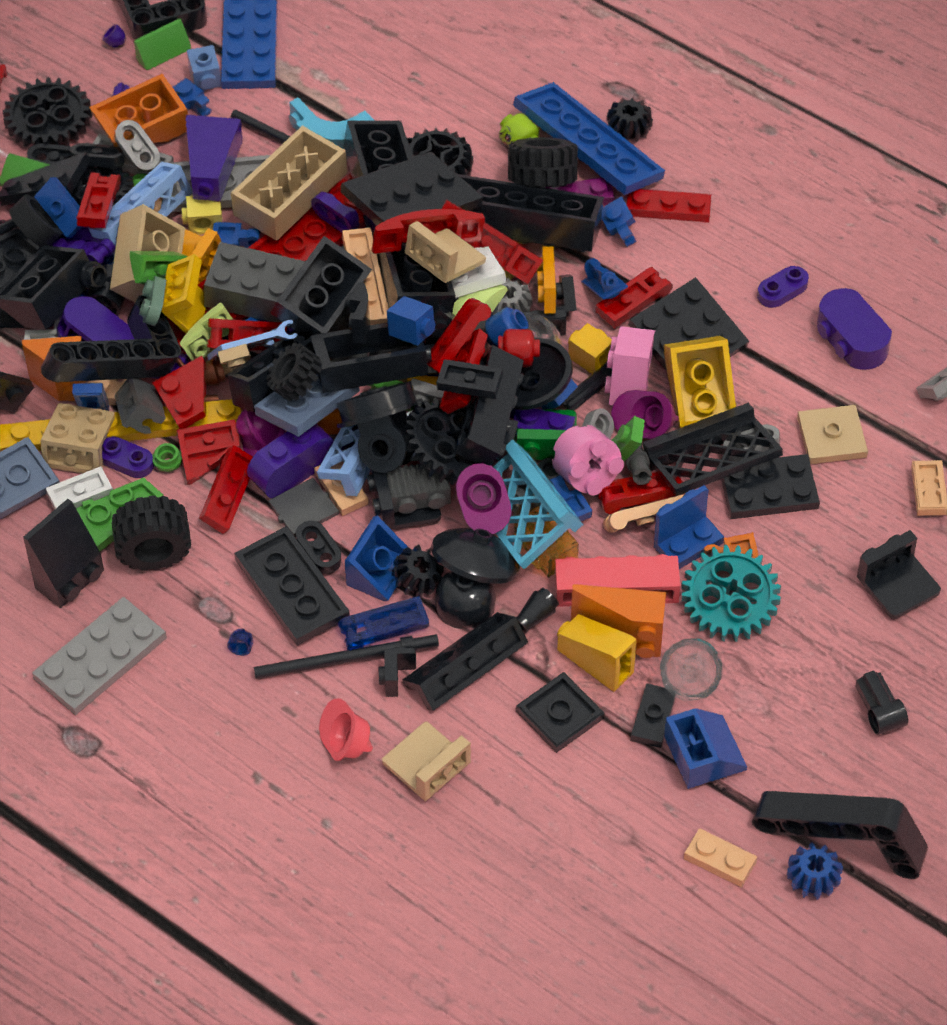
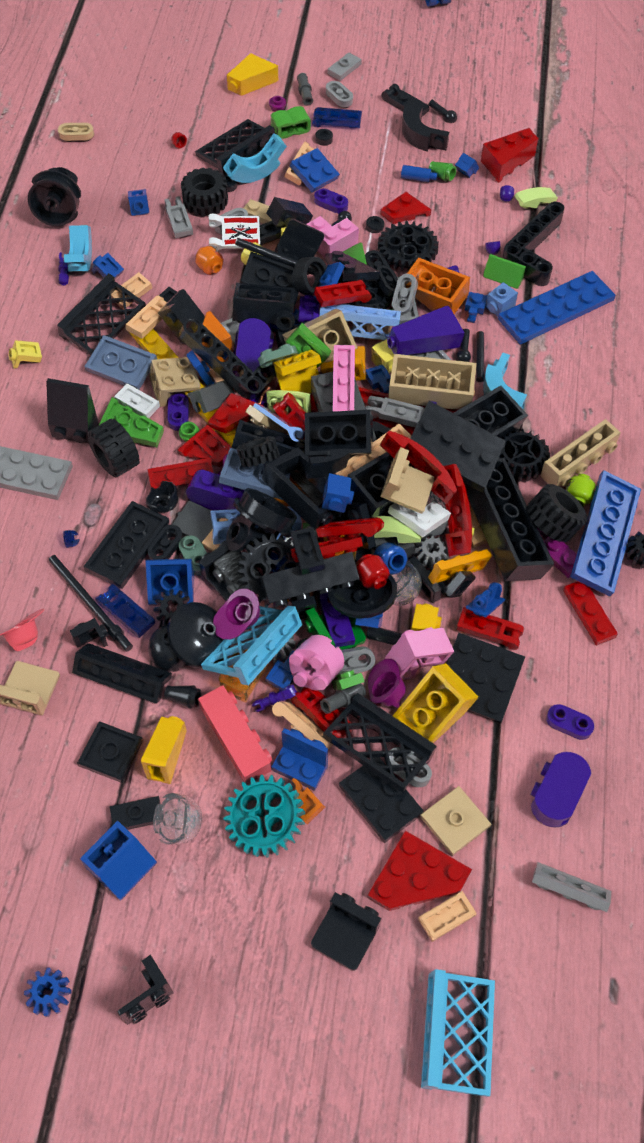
camera: 60 degrees right, 5 degrees up
(244, 253) = (343, 377): none -> bright pink plate
(252, 145) = (463, 354): none -> black bar
(252, 519) = (162, 498): none -> black hair
(302, 235) = (394, 410): none -> light grey hinge
(350, 527) = (192, 552): none -> sand green plate
(477, 107) = (580, 454): none -> tan brick
(599, 510) = (283, 694): none -> dark purple piece
(618, 219) = (550, 585): blue plate -> none
(627, 610) = (198, 766): orange slope -> none
(720, 857) = (36, 918): light nougat plate -> none
(847, 818) = (83, 1000): black beam -> none
(867, 755) = (156, 996): none -> black bracket
(869, 494) = (417, 875): none -> red plate
(884, 710) = (217, 978): black piece -> none

